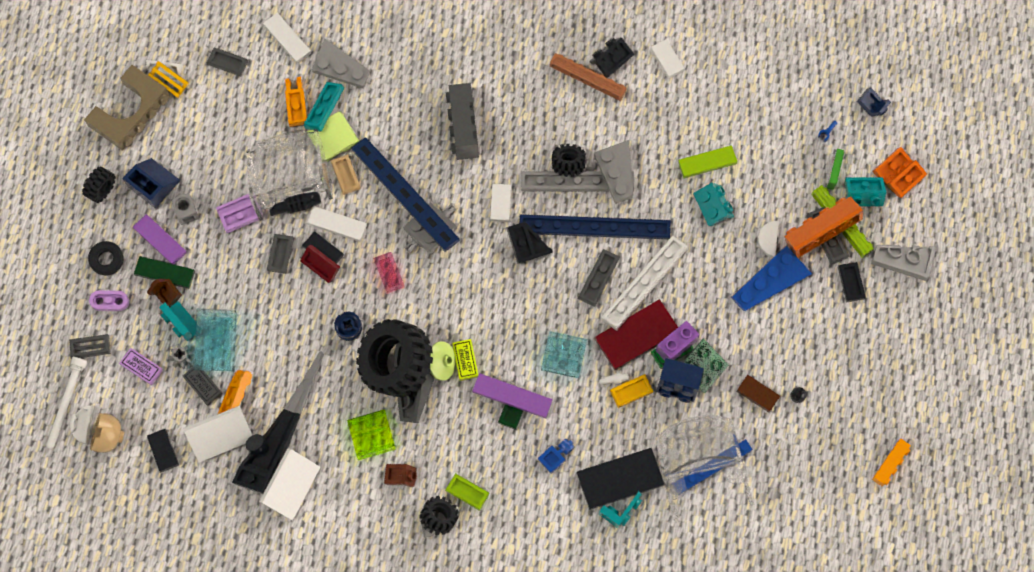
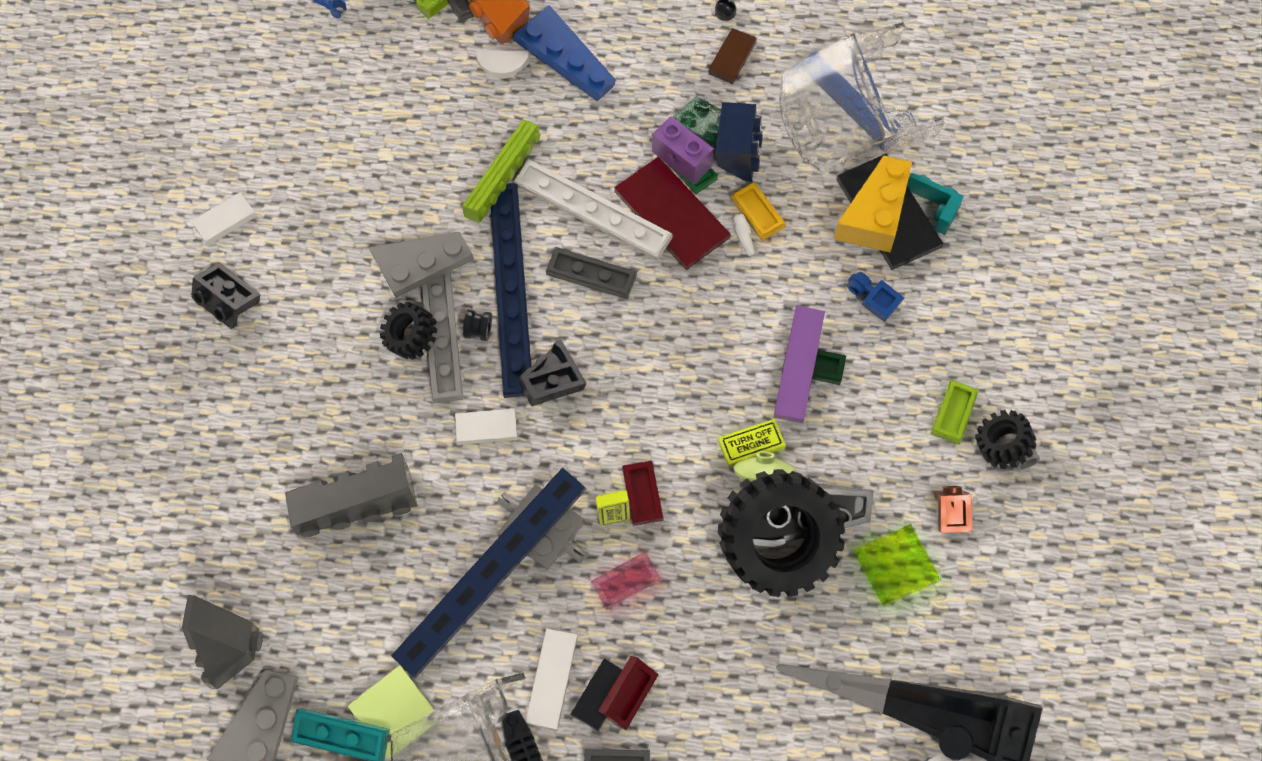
camera: 95 degrees left, 5 degrees down
(289, 484) = (1011, 673): white tile -> none
(345, 174) = (460, 679): tan tile -> none
(350, 333) = (731, 615): dark blue wheel -> none
(383, 41) = (221, 640): none -> dark grey wedge
(430, 266) = (613, 507): none -> neon yellow tile
(442, 289) = (642, 493): none -> dark red tile
(564, 354) = (720, 304): clear light blue slope -> none
(568, 202) = (477, 325): none -> black wheel
(588, 76) = (260, 325): nougat piece -> none
(618, 465) = (877, 207): none -> yellow wedge
(679, 227) = (501, 171): none -> lime piece
(707, 161) = (390, 149): lime tile -> none
(713, 203) = (459, 133): teal bracket -> none

